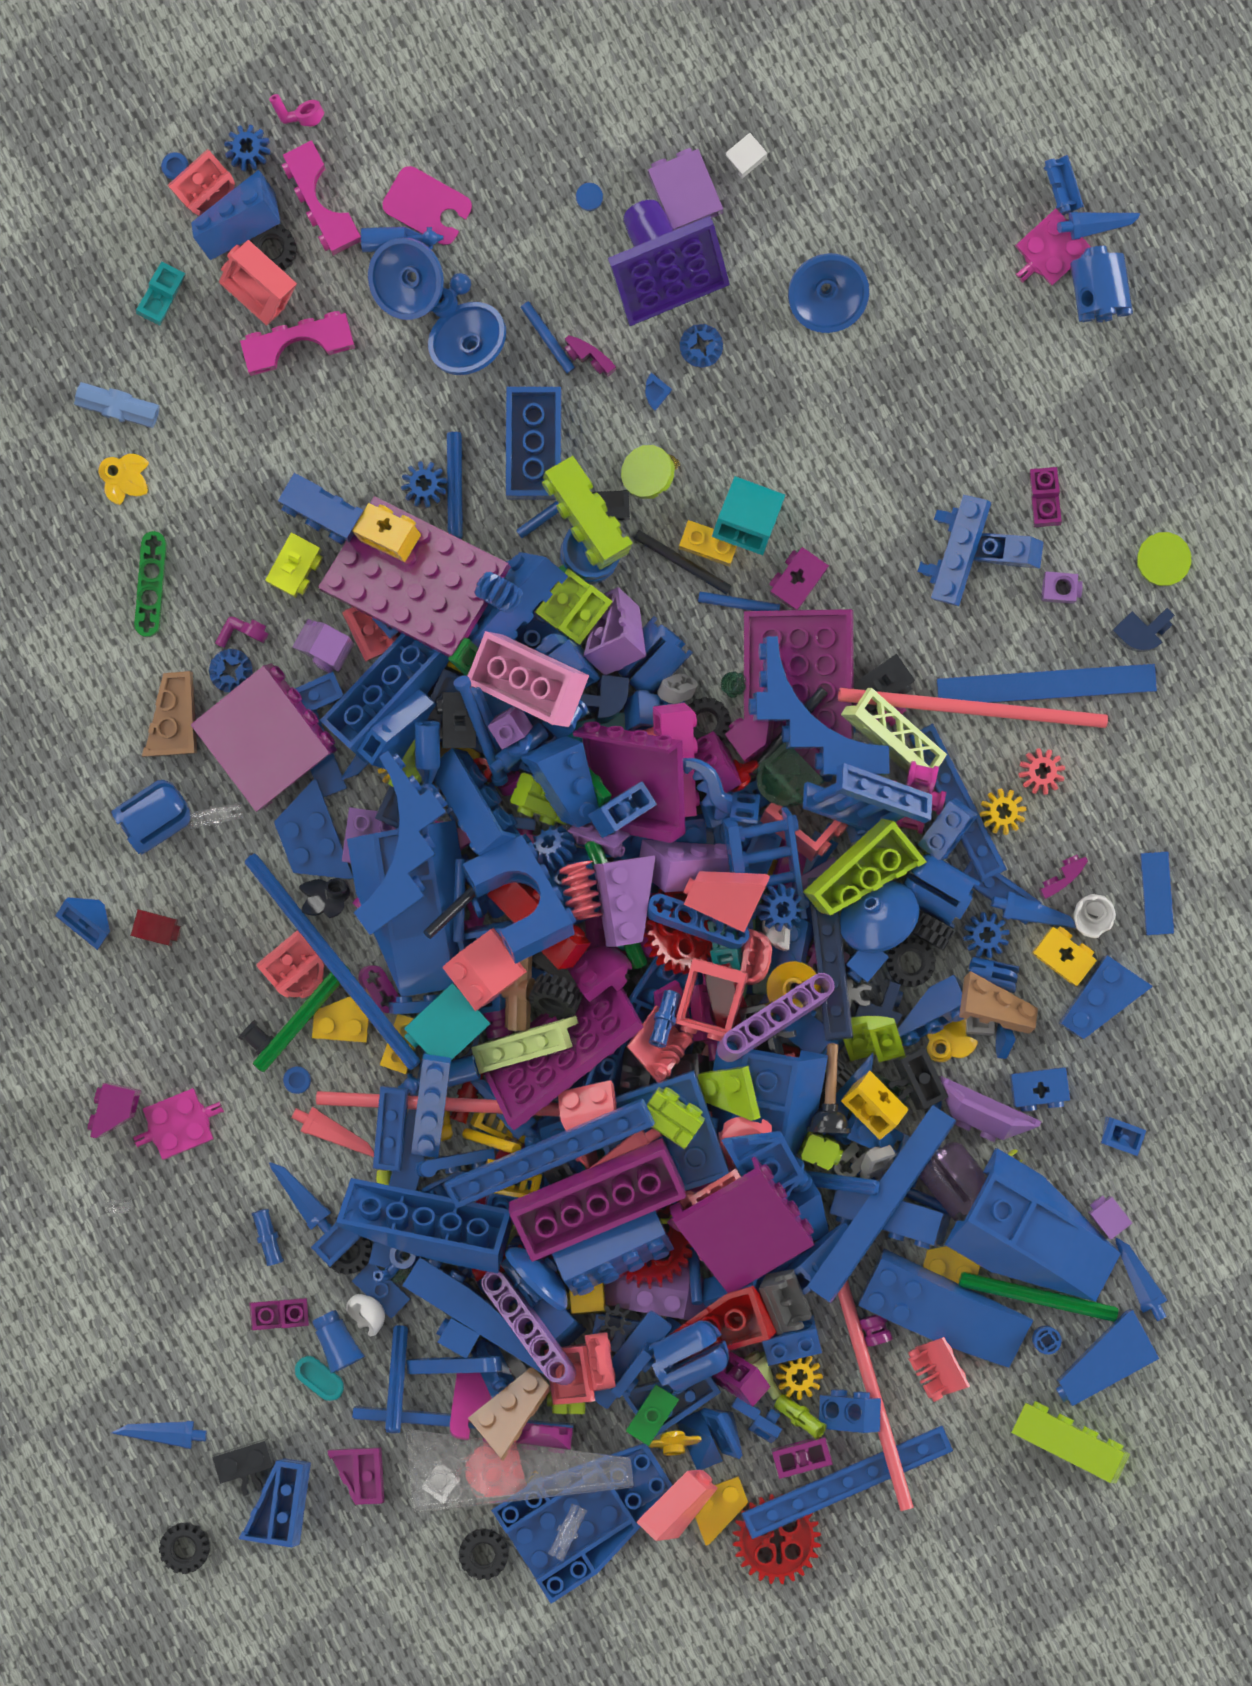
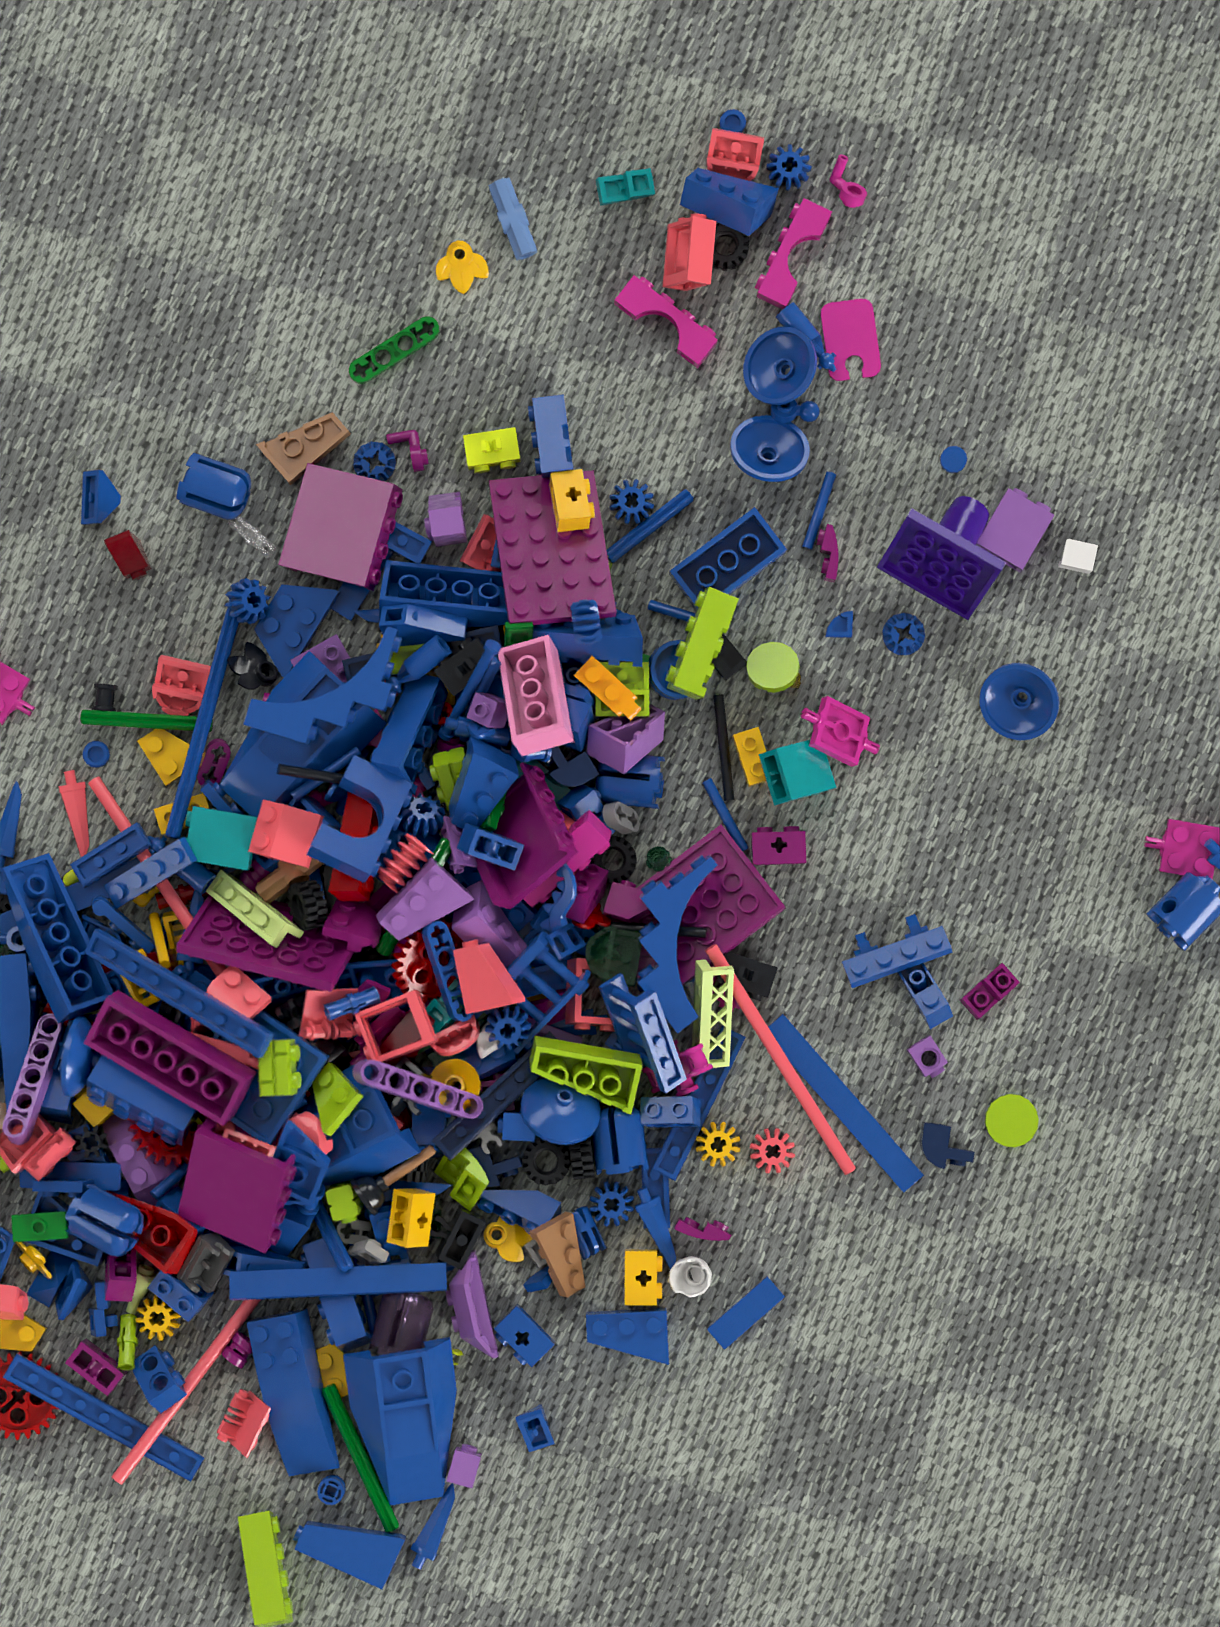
camera: 50 degrees right, 0 degrees up
(267, 859) = (256, 605): none -> blue gear
(565, 617) = (608, 688): none -> light orange hinge
(742, 457) = (839, 731): none -> dark pink plate

